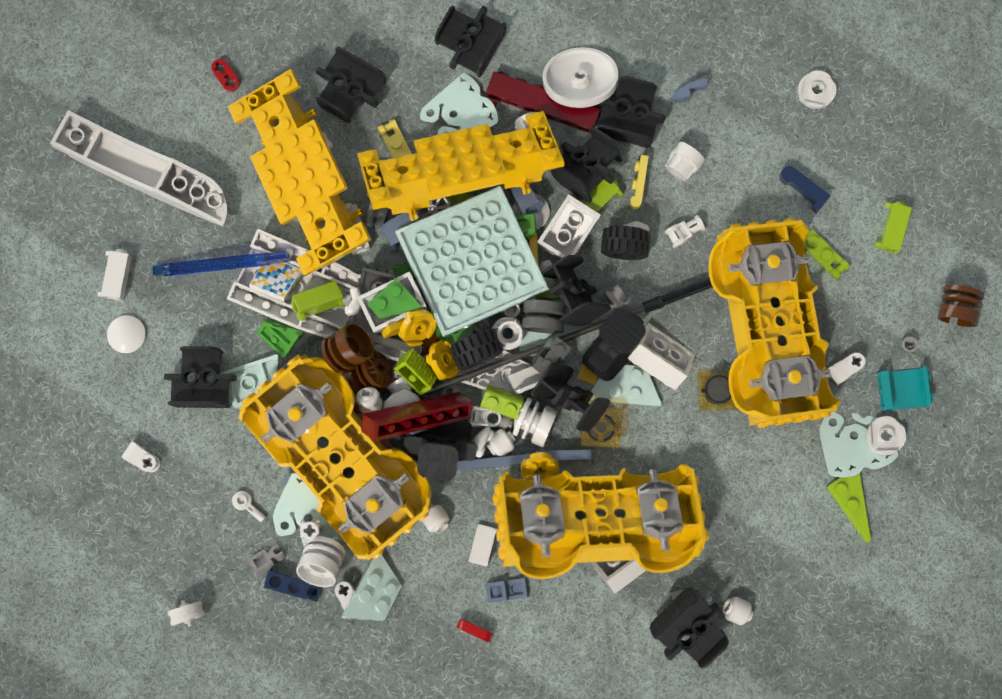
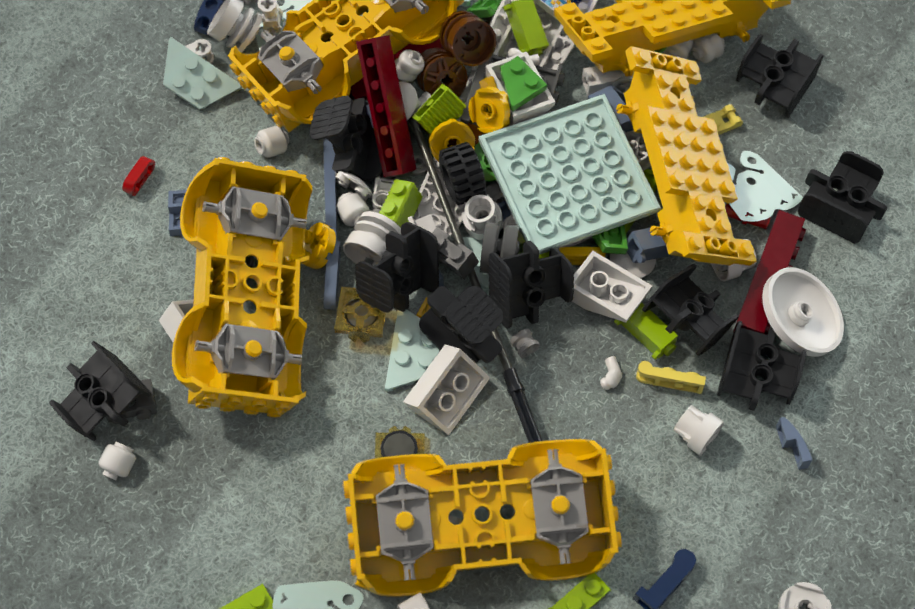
camera: 90 degrees right, 20 degrees down
(625, 242) = (591, 349): black tyre -> none
(683, 232) = (606, 426): white connector -> none

